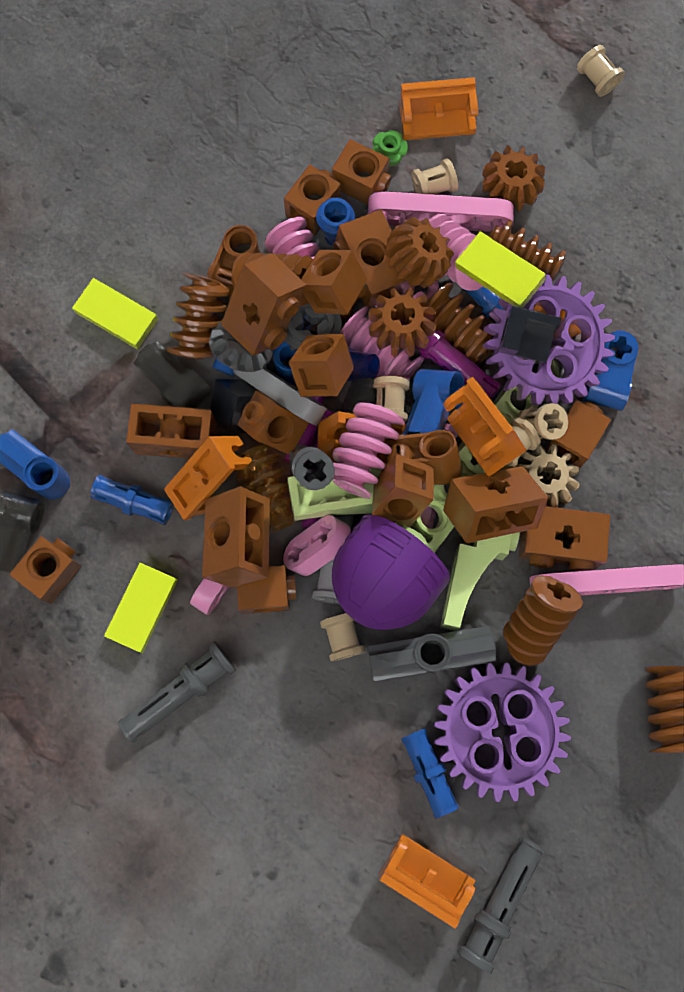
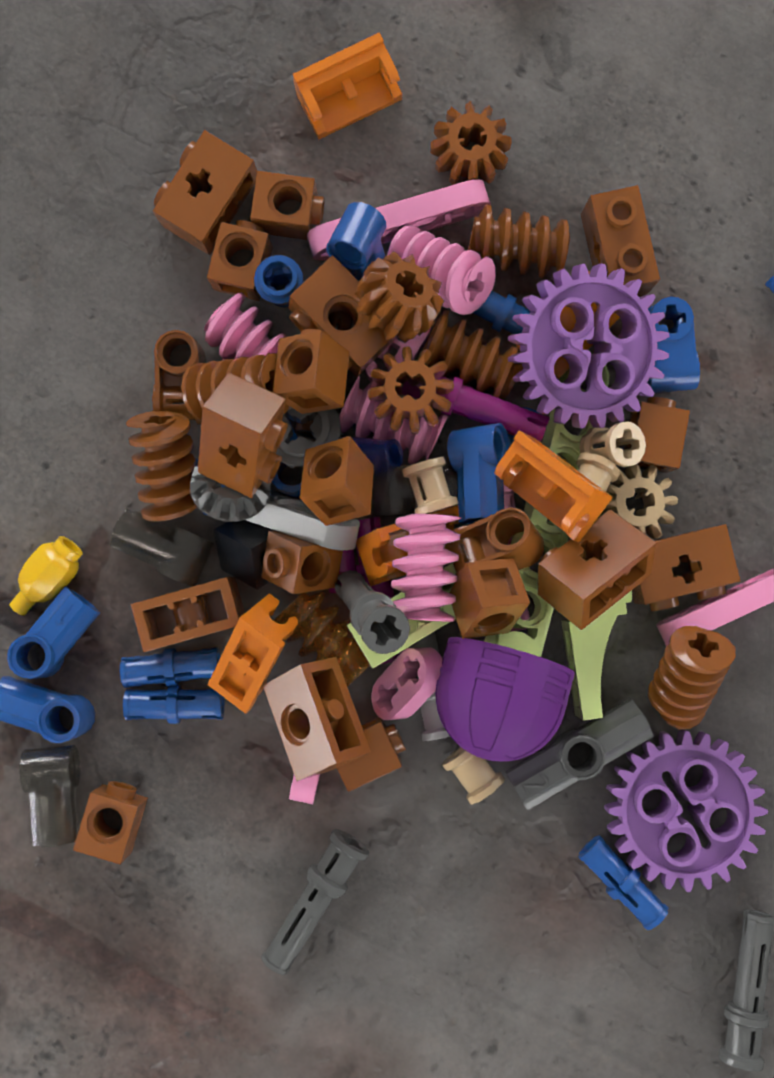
camera: 20 degrees left, 10 degrees up
(66, 412) = (56, 632): none -> blue piece
(77, 368) = (46, 573): none -> yellow plant
(115, 313) = (61, 489): neon yellow tile -> none
(138, 470) = (168, 667): none -> blue pin
(141, 608) = (234, 822): neon yellow tile -> none
(310, 138) = (205, 165): none -> dark orange brick
(395, 139) = (306, 145): bright green plate -> none
(404, 202) = (358, 238): none -> blue piece
(428, 880) = (661, 998): orange hinge -> none
(435, 179) = (384, 167): tan bush -> none
(500, 270) = (506, 287): neon yellow tile -> none
(528, 334) = (566, 358): black panel -> none
(603, 272) = (620, 236): none -> dark orange brick

